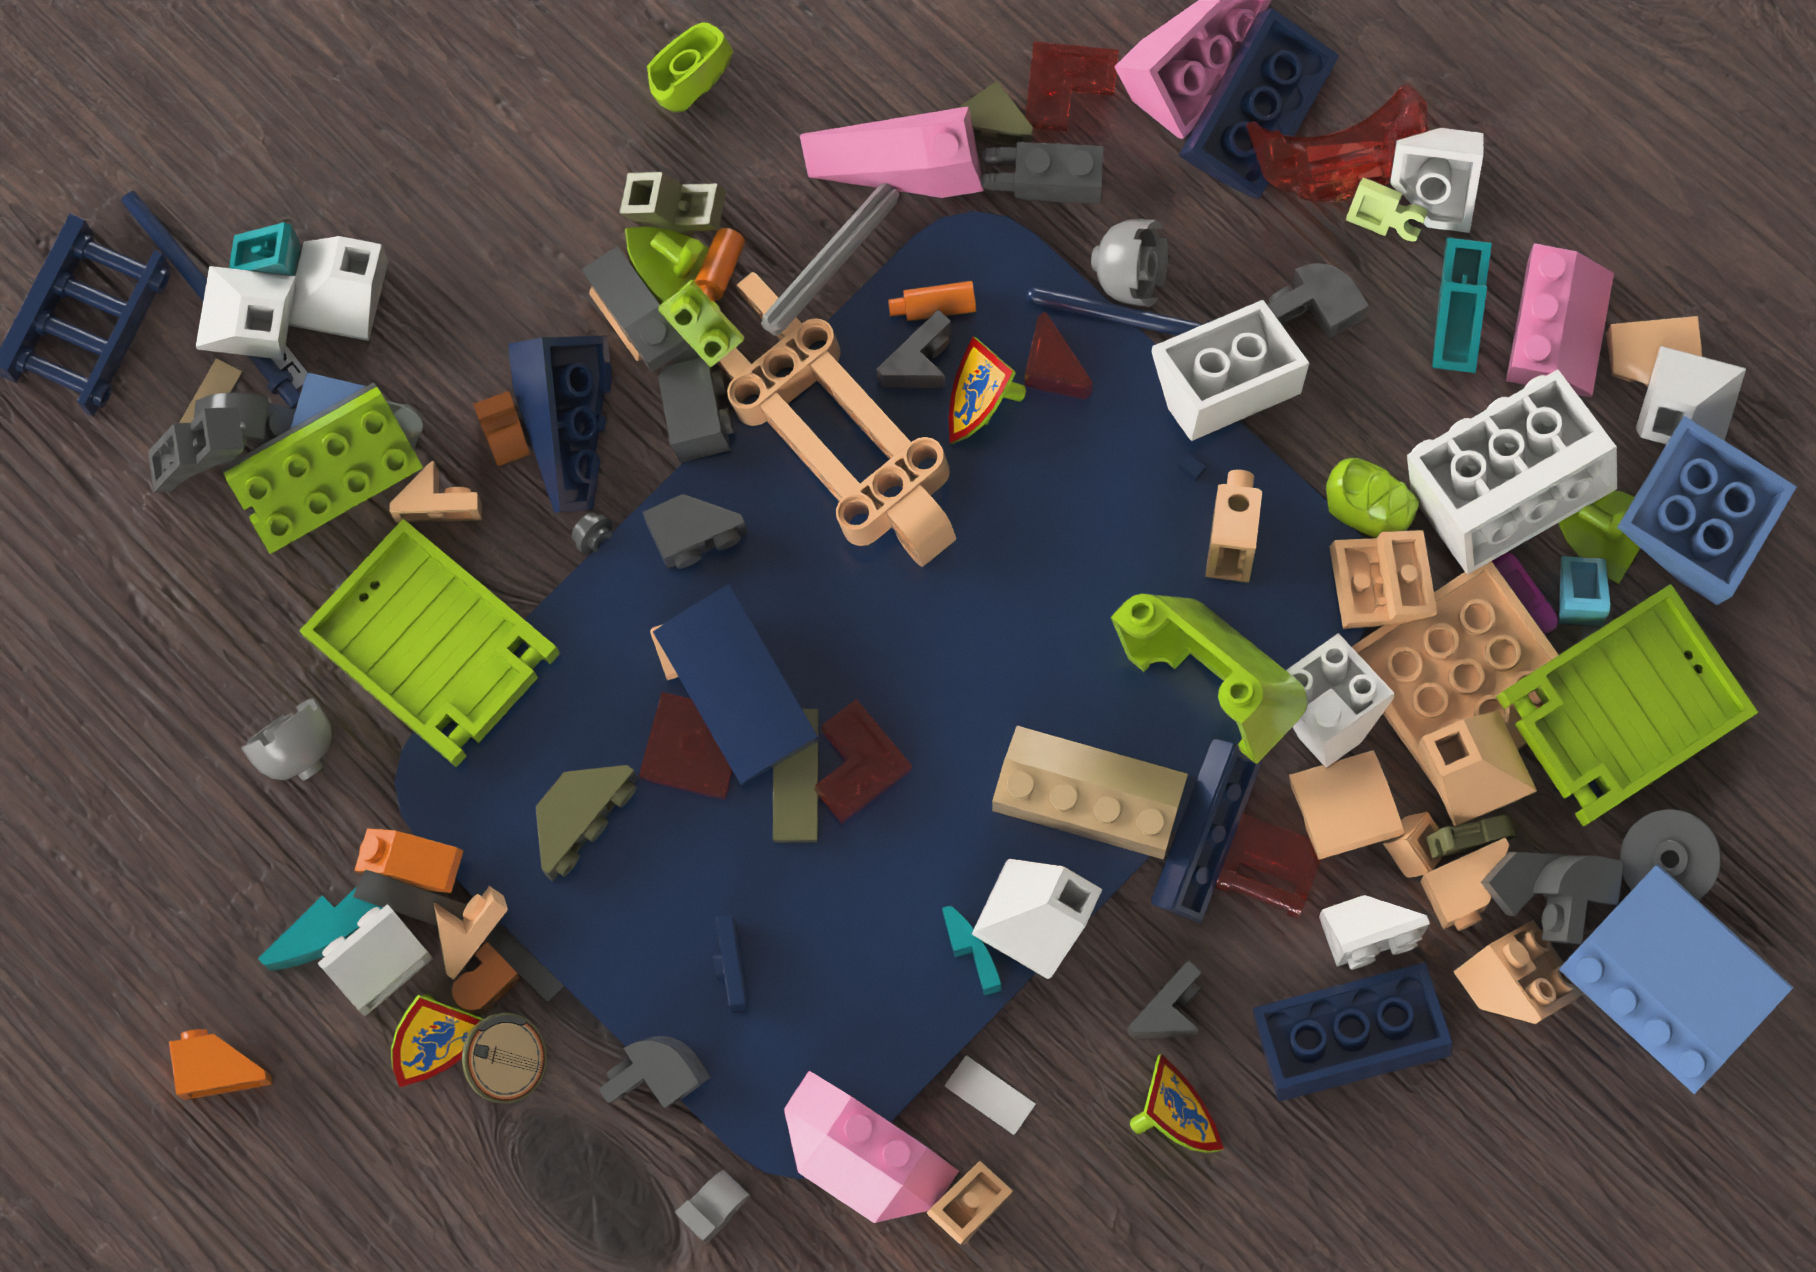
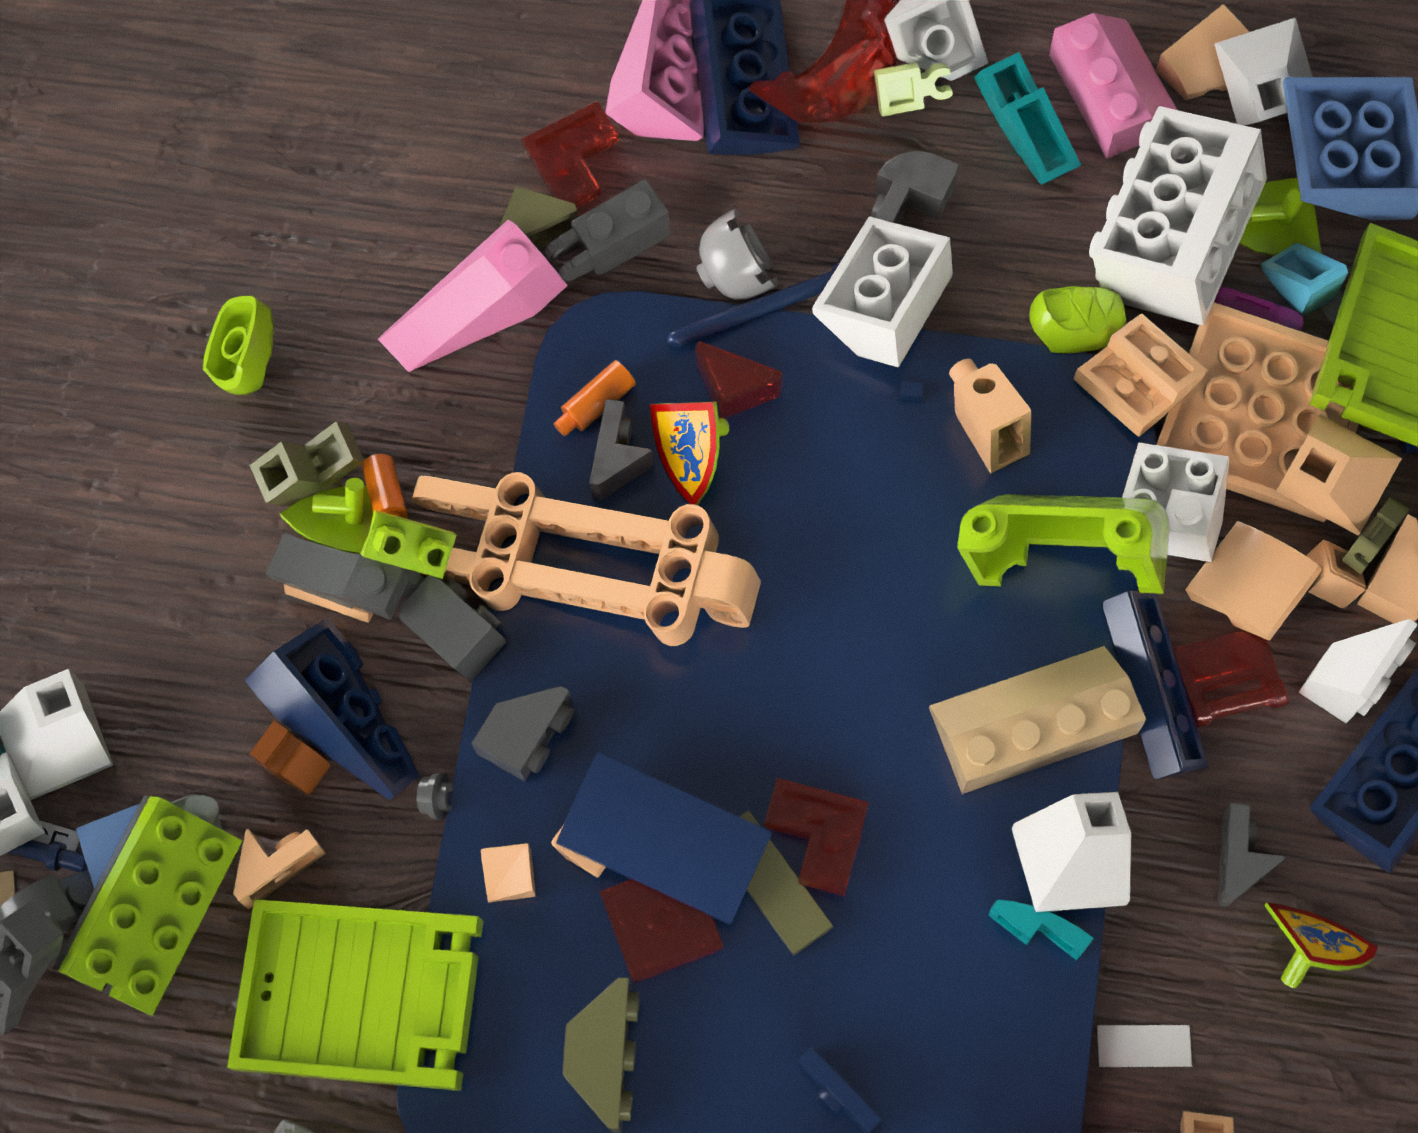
camera: 35 degrees left, 5 degrees down
(604, 630) = (508, 872): none -> light nougat slope
(830, 259) = (479, 423): light grey axle -> none

